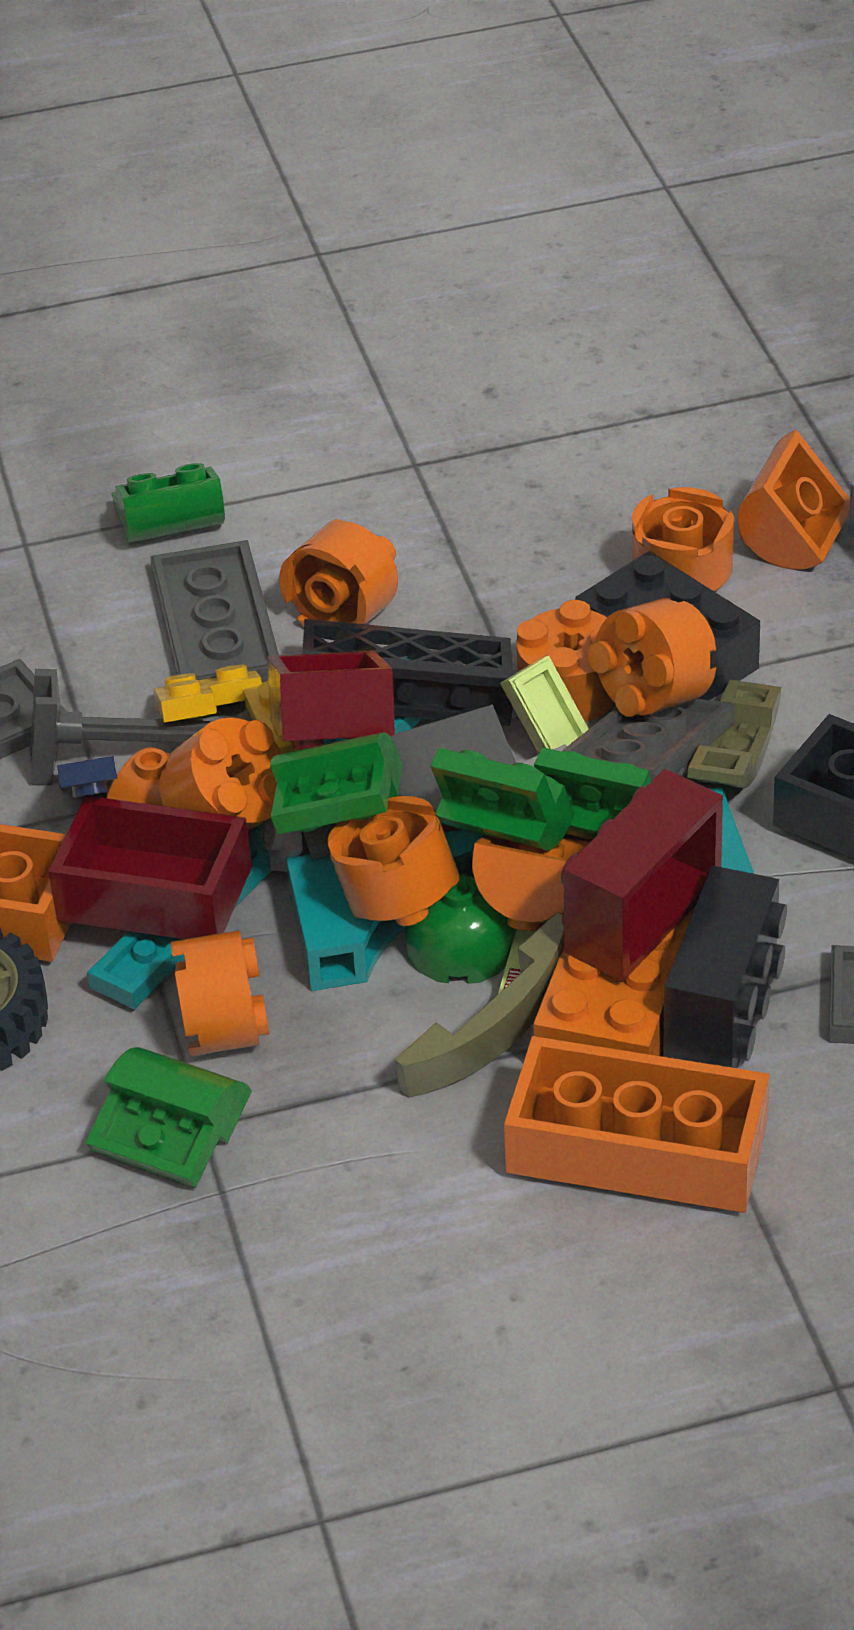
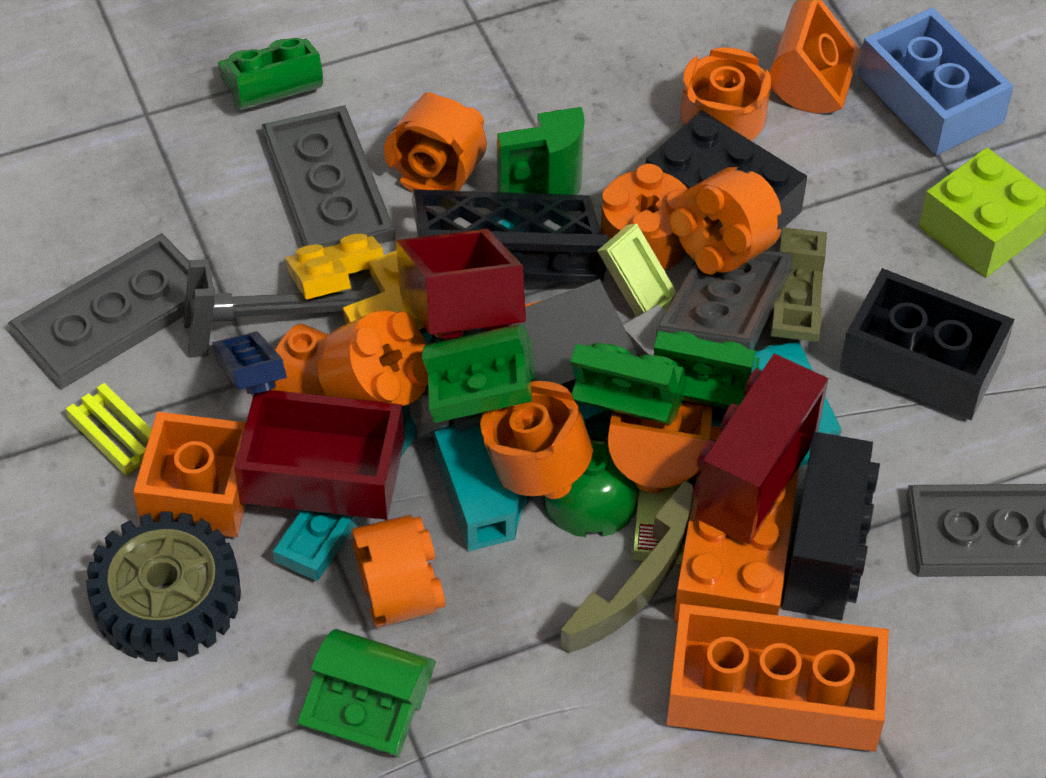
camera: 10 degrees left, 10 degrees up
(459, 589) = (543, 157): none -> green brick

